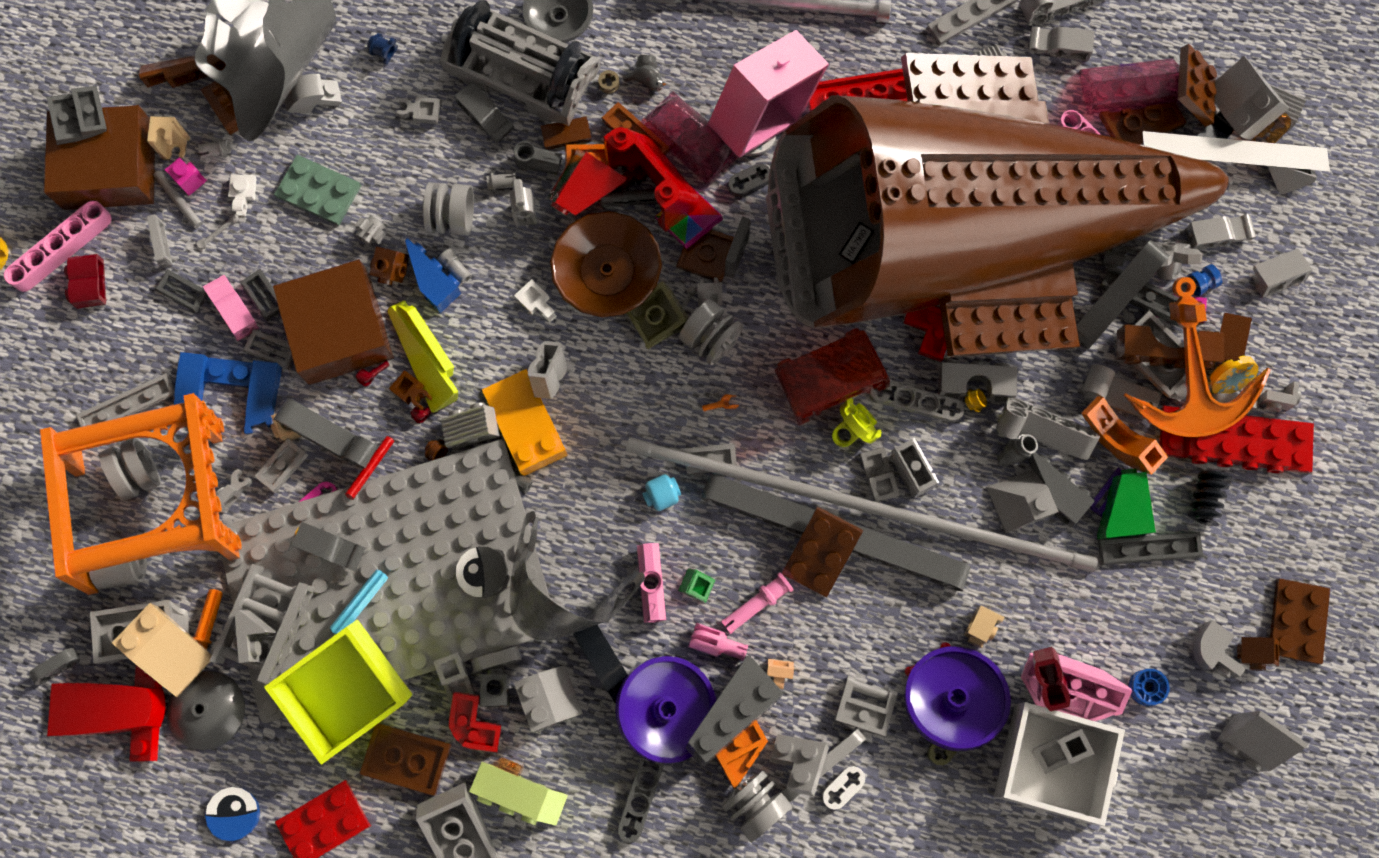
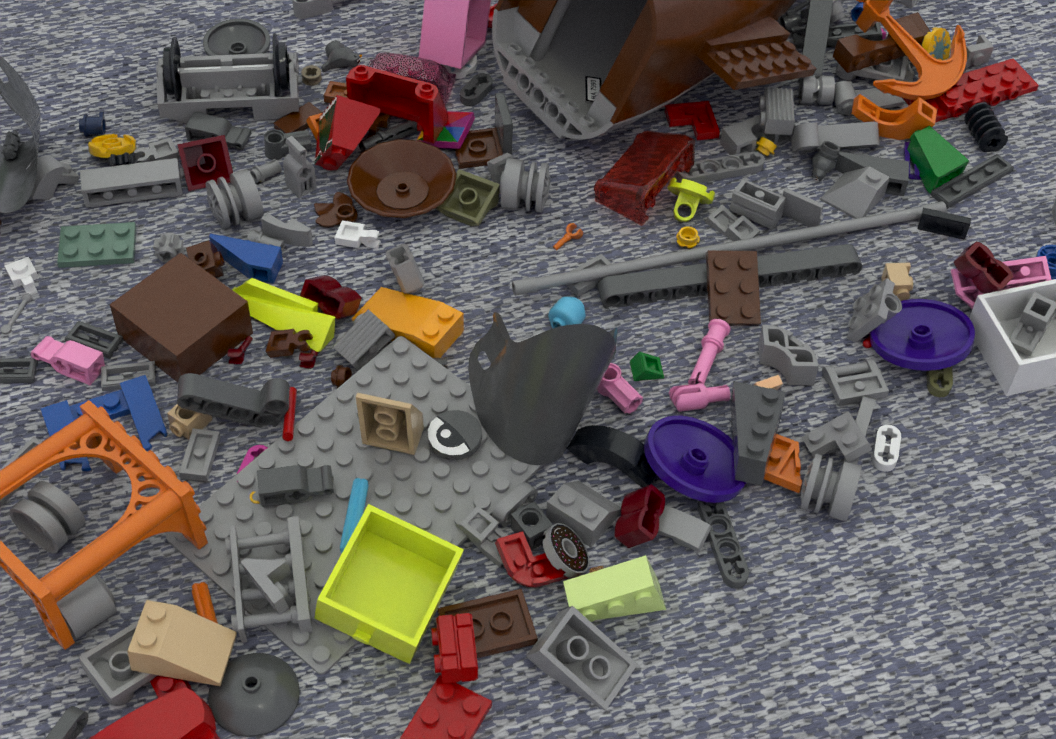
camera: 35 degrees left, 25 degrees down
(361, 773) = (456, 648): none -> red brick
(377, 137) = (131, 179): none -> light grey brick
(382, 107) = (123, 159): none -> black plate
(384, 82) = (109, 144): none -> yellow tile
(428, 537) = (389, 423): none -> tan slope
(451, 145) = (205, 161): none -> dark red slope
(471, 362) = (331, 296): none -> dark red brick
(480, 267) = (290, 232): none -> light grey slope
(516, 732) = (565, 550): none -> tile
(534, 259) = (334, 213): none -> reddish brown plate
(583, 736) = (640, 516): none -> dark red brick
(612, 761) = (683, 528): none -> light grey slope
(821, 649) = (788, 355): none -> light grey brick
(832, 461) = (690, 233): none -> yellow plate
(922, 650) = (873, 309): none -> light grey plate
(950, 498) = (802, 208): none -> light grey piece
(1004, 377) = (777, 111): none -> light grey brick
(1075, 360) = (817, 90): none -> light grey wheel
(1078, 585) = (944, 223): none -> black plate

